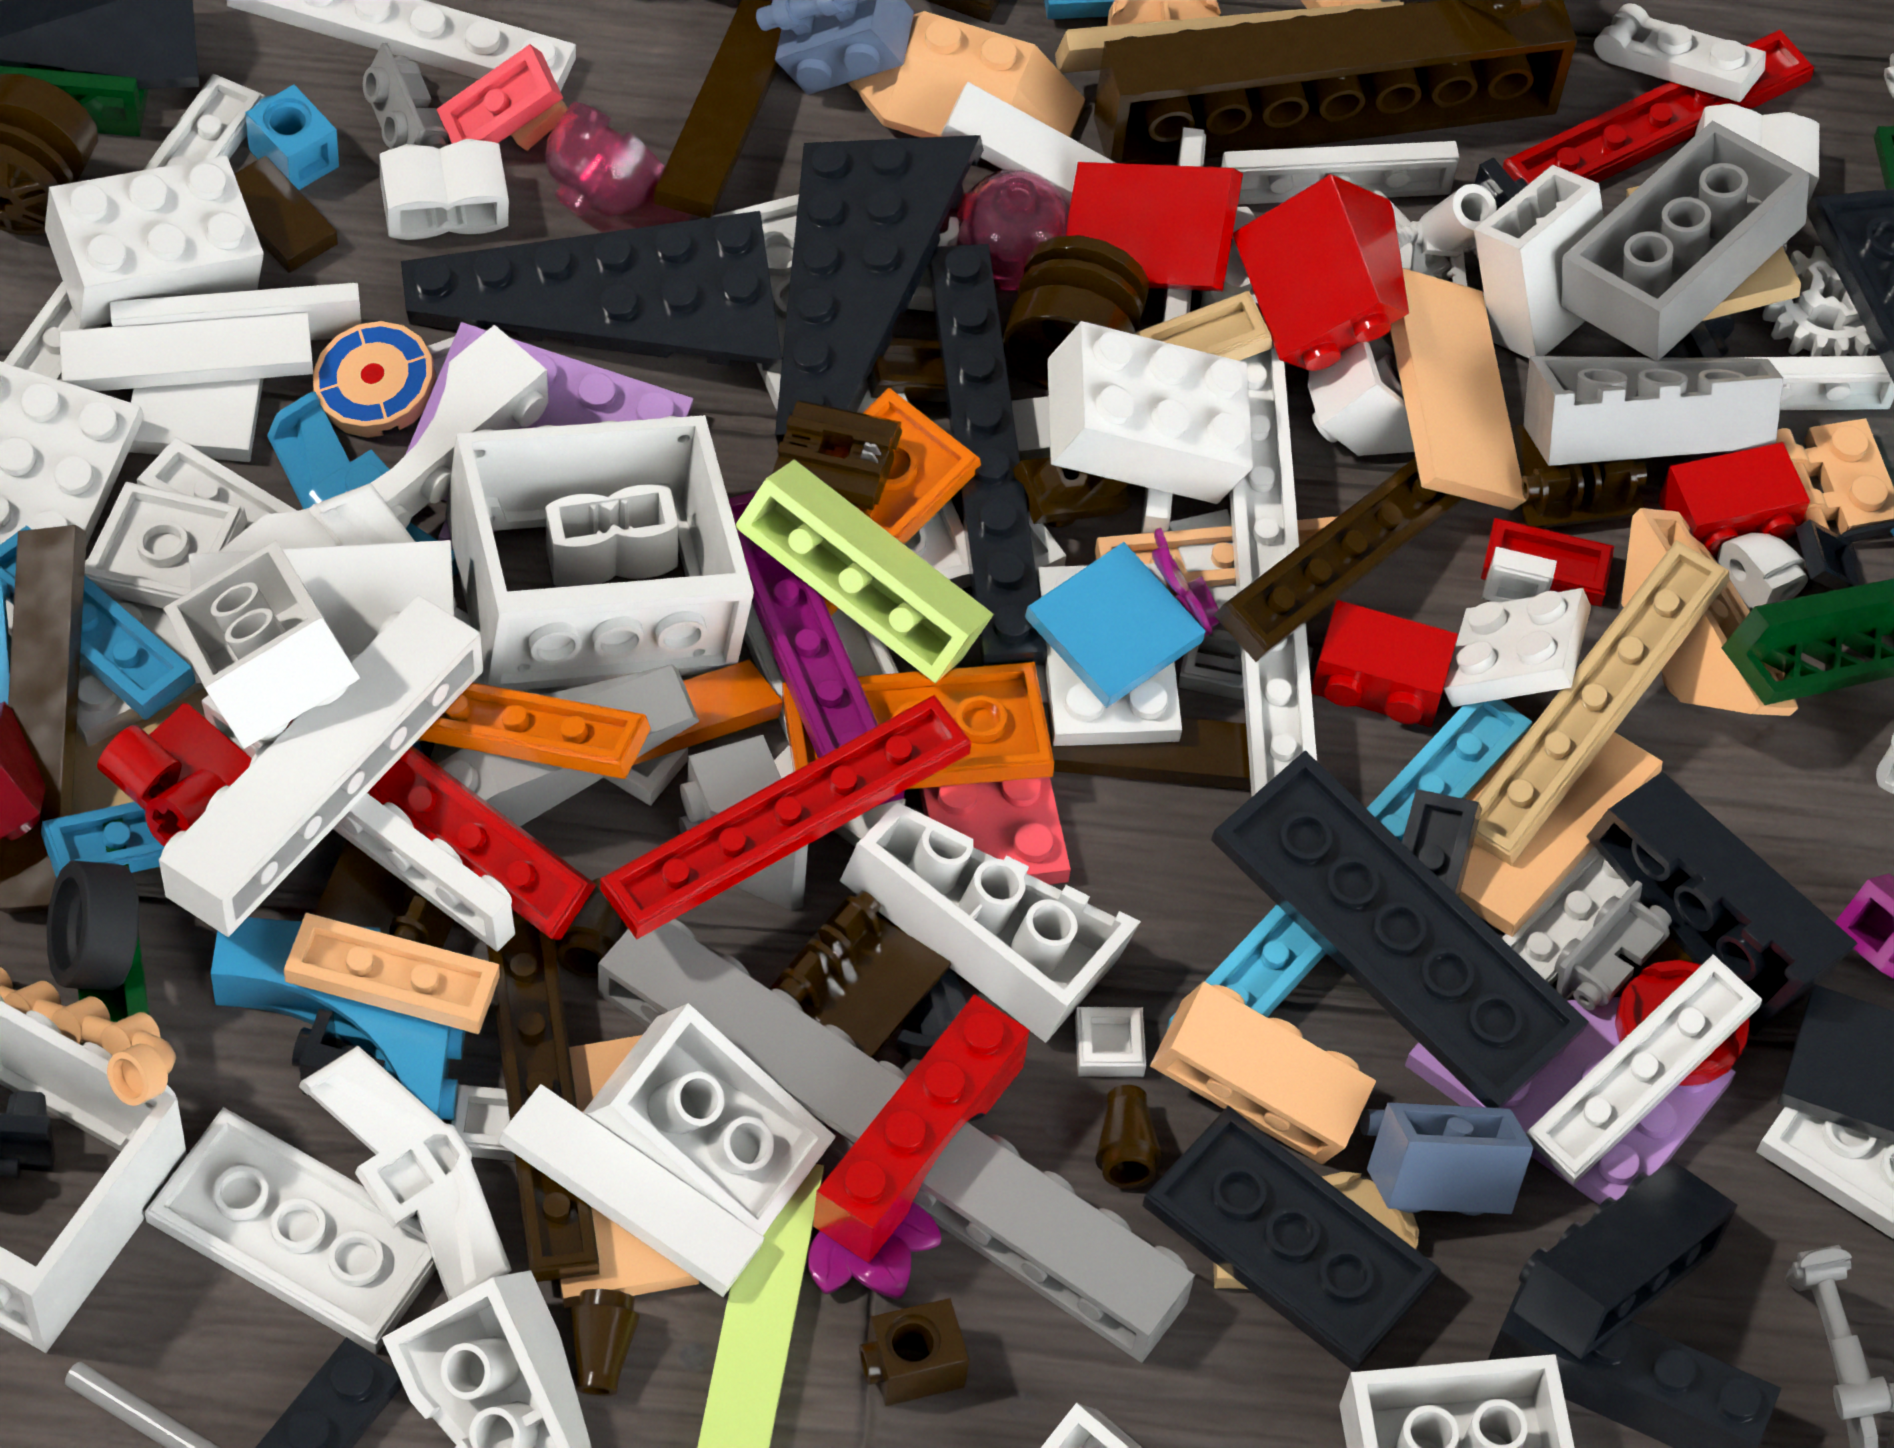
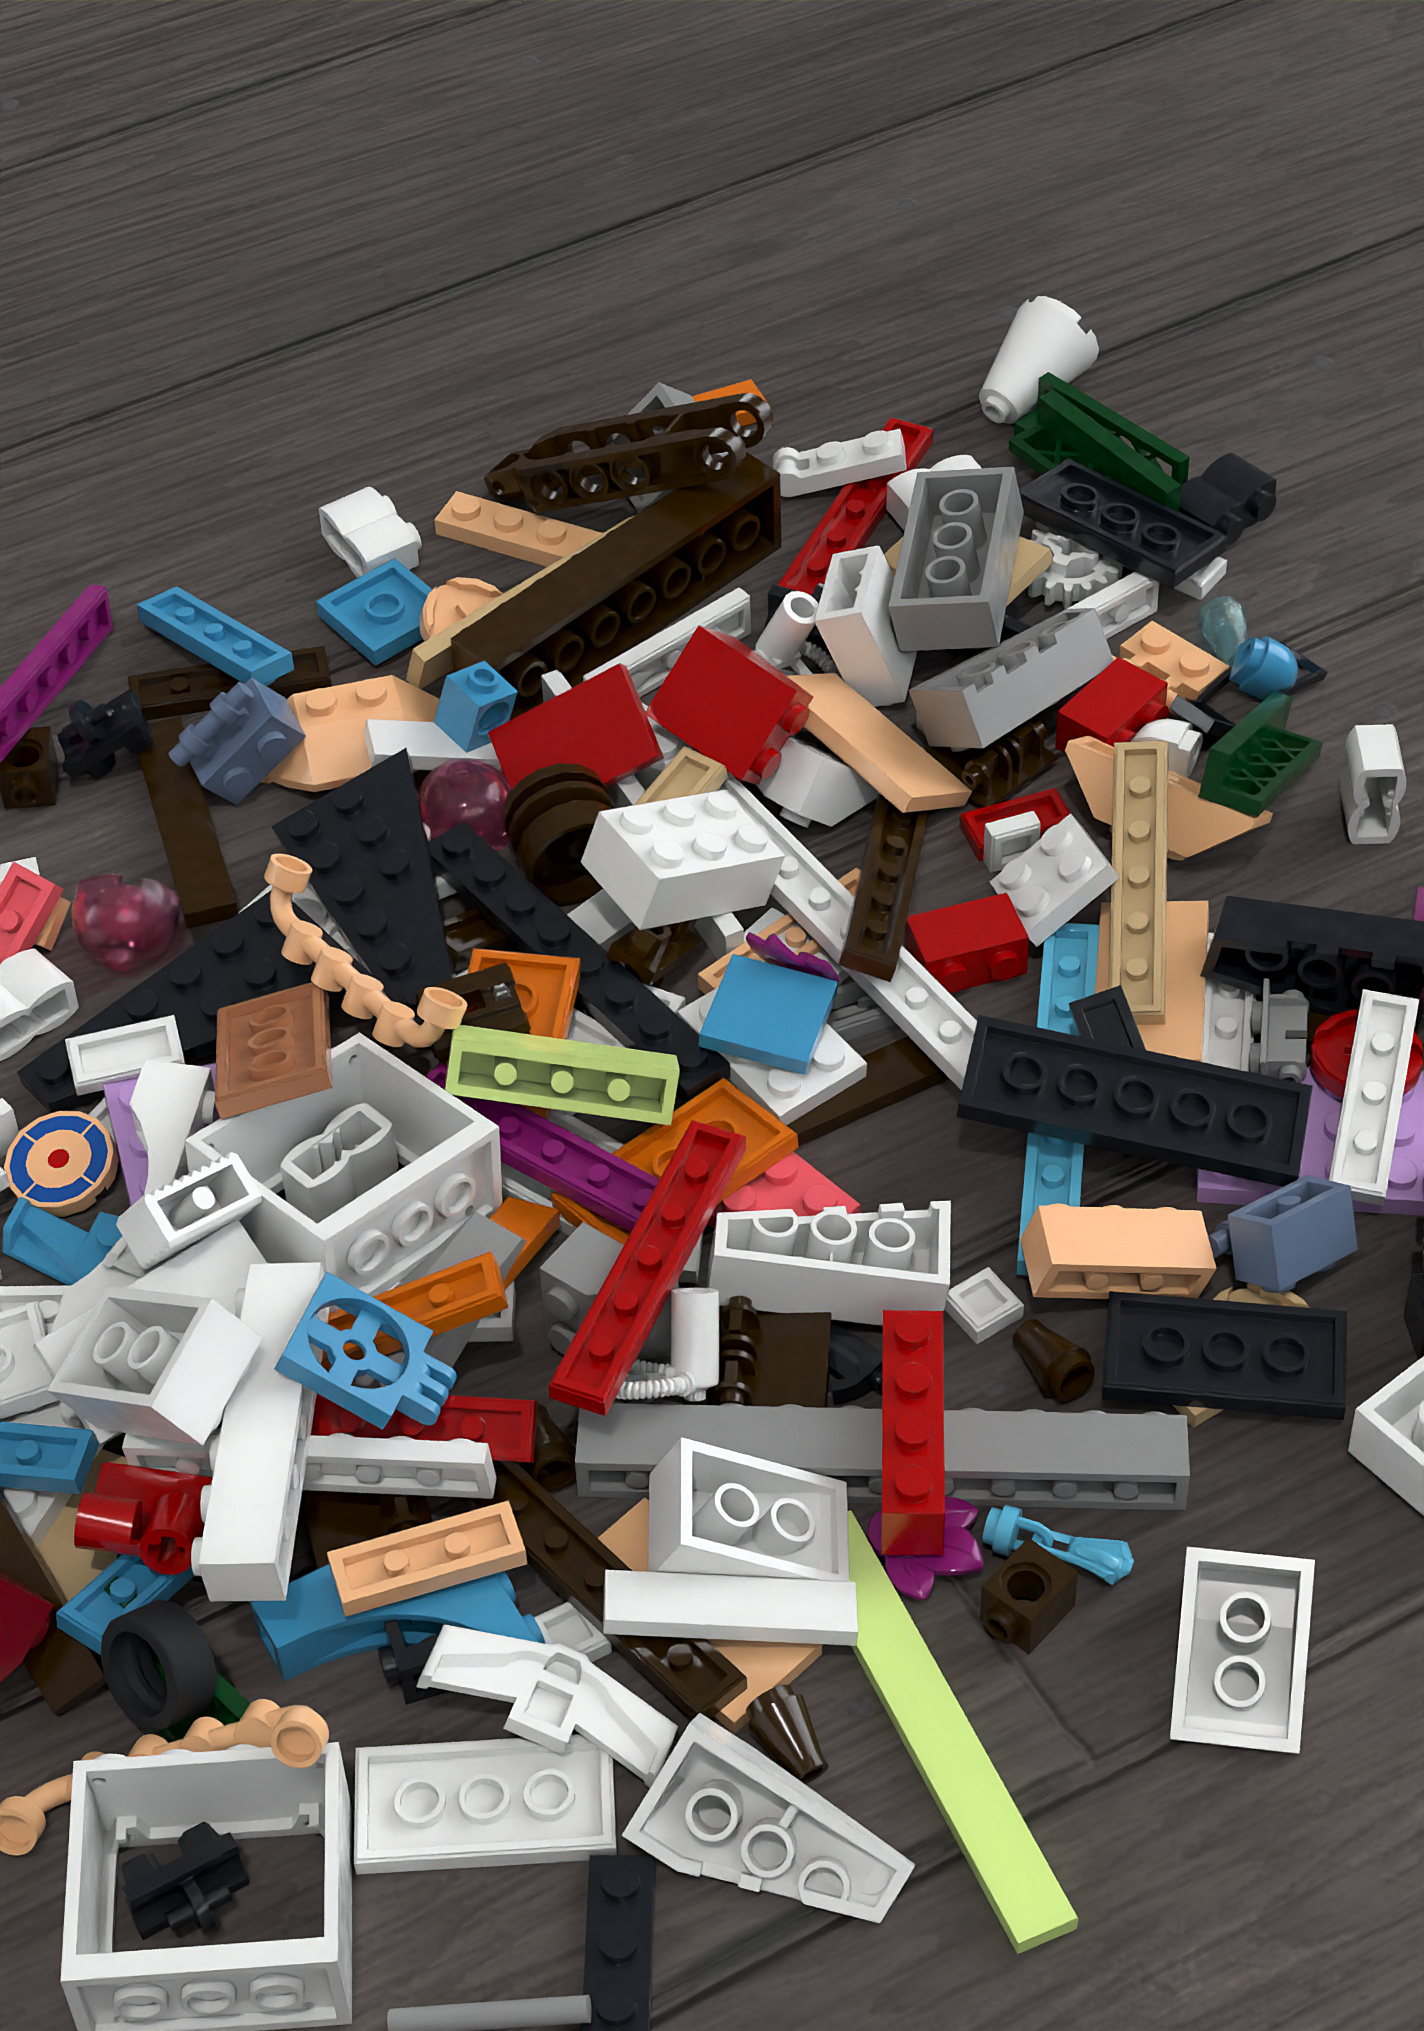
camera: 25 degrees left, 10 degrees down
(406, 507) = (188, 1210): none -> white brick
(479, 794) = (413, 1388): none -> dark azure piece
(493, 297) = (121, 1052): none -> white tile
(615, 385) = (272, 1049): none -> nougat tile
(748, 428) = (333, 969): none -> light nougat bar
(768, 932) = (693, 1351): none -> white piece
(1016, 1359) = (1102, 1557): none -> medium azure piece
(1081, 126) = (473, 705): none -> dark azure brick

